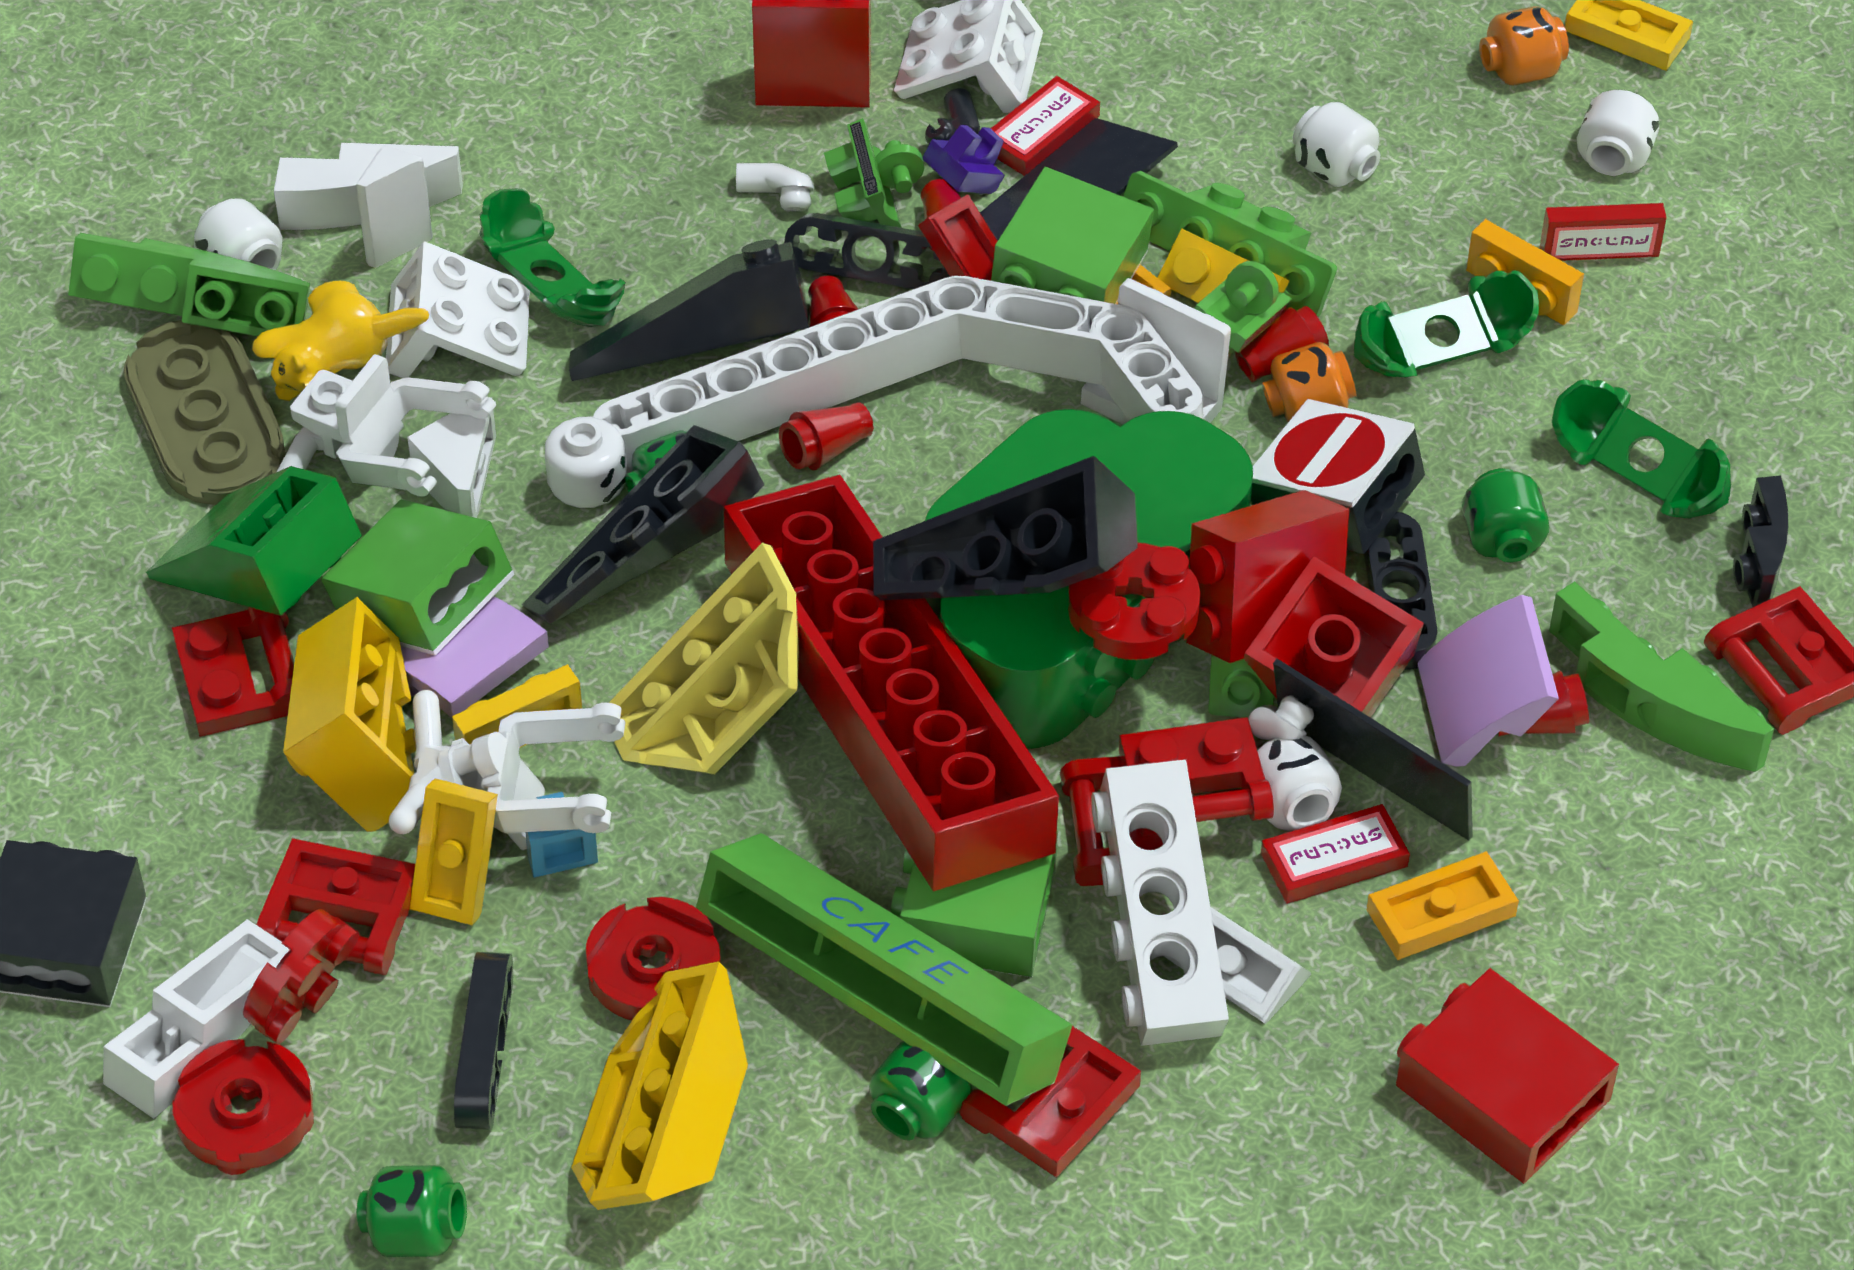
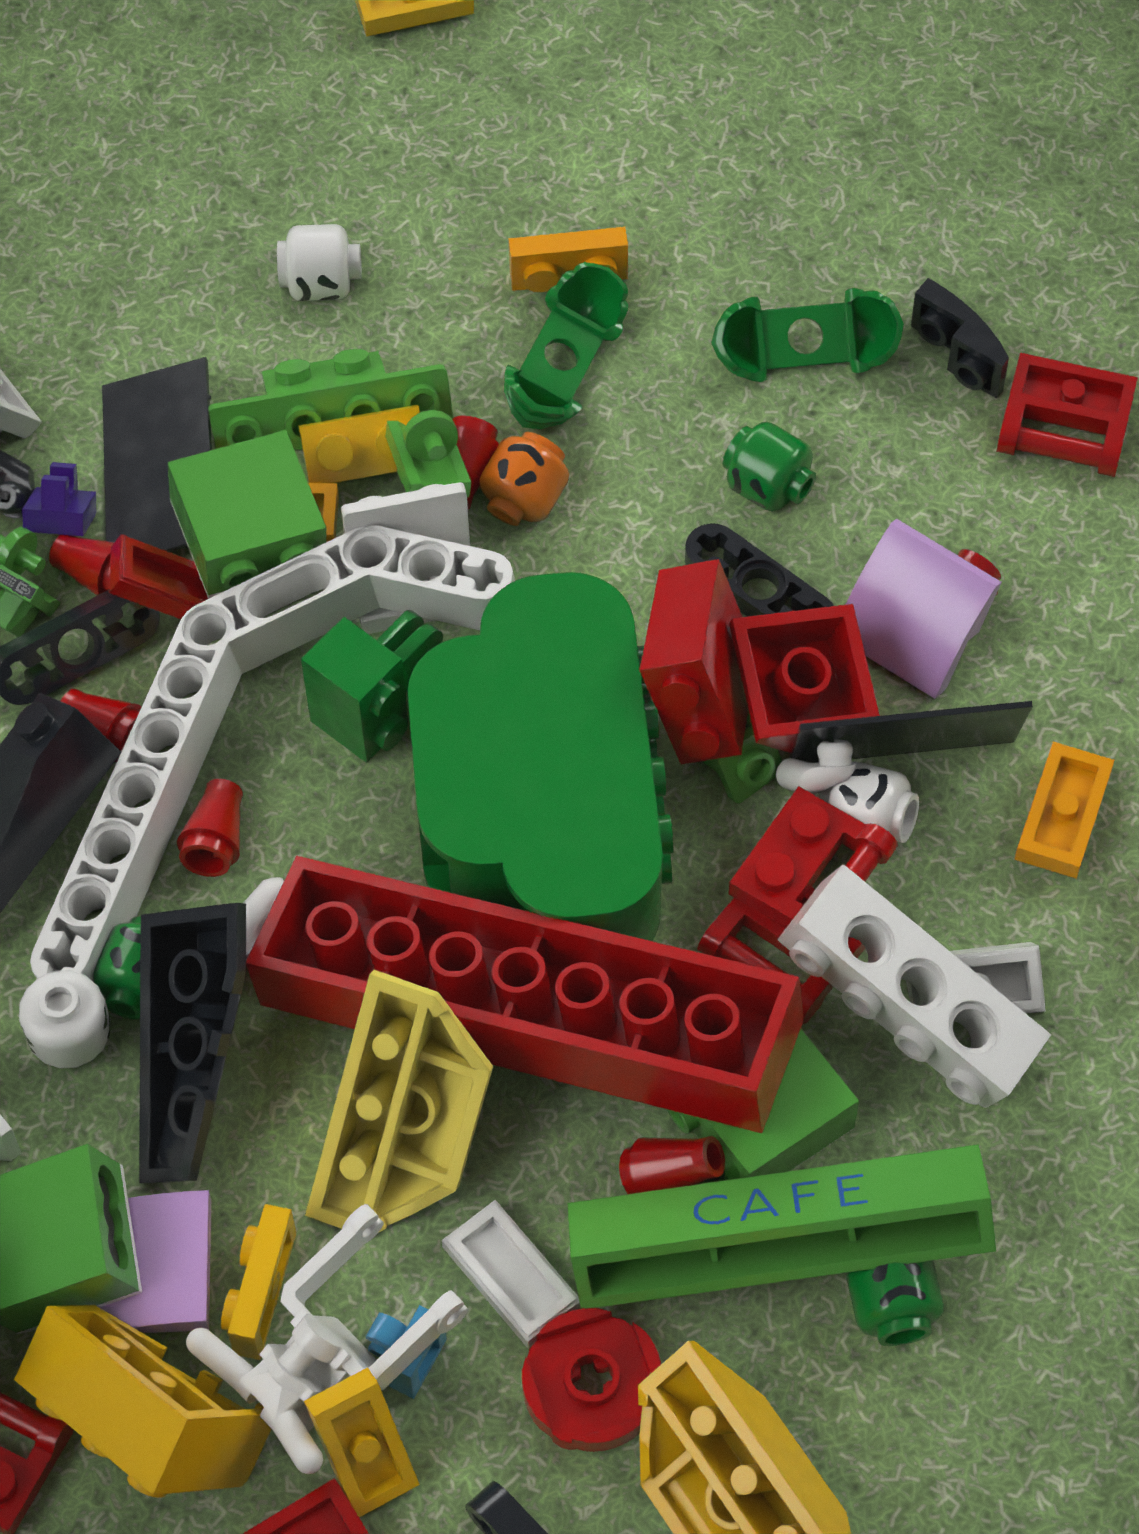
camera: 45 degrees left, 10 degrees up
(682, 847) = (510, 1272): none -> white tile
(863, 870) = (670, 1163): none -> red cone
(1014, 540) = (562, 798): black wedge -> none
(1018, 388) = (361, 683): none -> green brick
(1044, 124) = (73, 422): tile -> none
(1065, 1115) = (1017, 1209): red plate -> none
(1163, 615) = (660, 801): red plate -> none
(1334, 853) = (946, 836): tile -> none
(1345, 458) = (629, 526): piece -> none
(1524, 45) = (360, 71): orange head -> none
(1603, 231) = (585, 180): tile -> none
(1617, 132) = (504, 91): white head -> none
(1666, 697) = (1033, 516): bright green slope -> none

